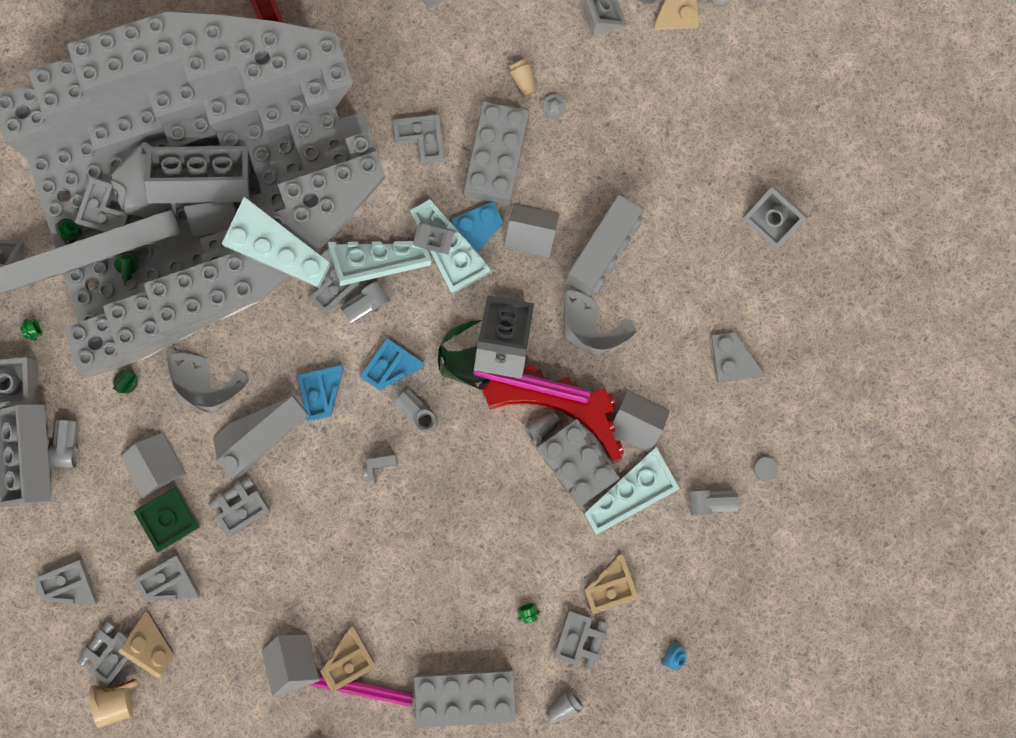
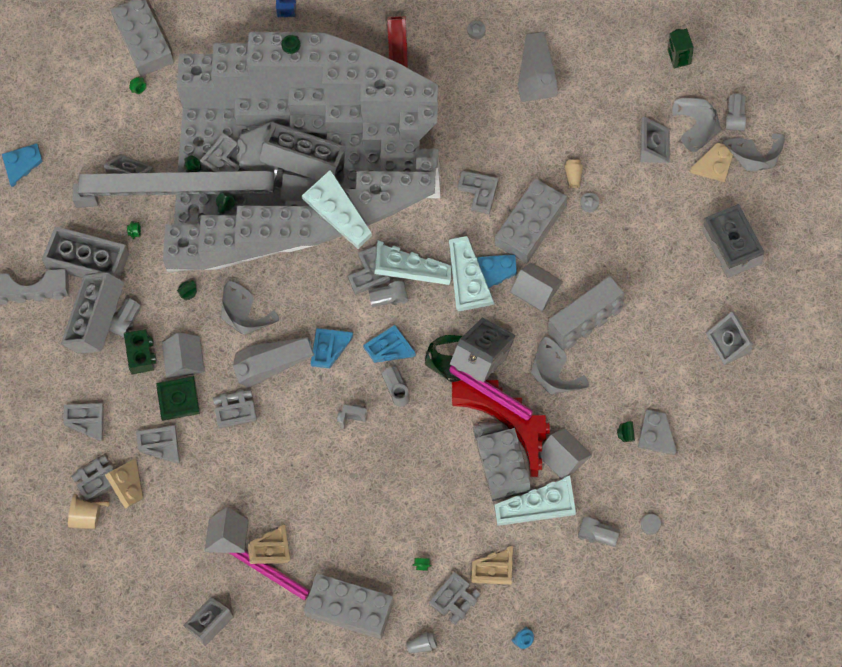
camera: 30 degrees right, 15 degrees down
(93, 484) = (135, 352): none -> dark green brick
(127, 43) = (291, 44): none -> dark green plate
(433, 238) = (457, 263): light grey bracket -> none
(700, 371) = (626, 432): none -> dark green plate
(738, 97) = (733, 240): none -> dark grey piece

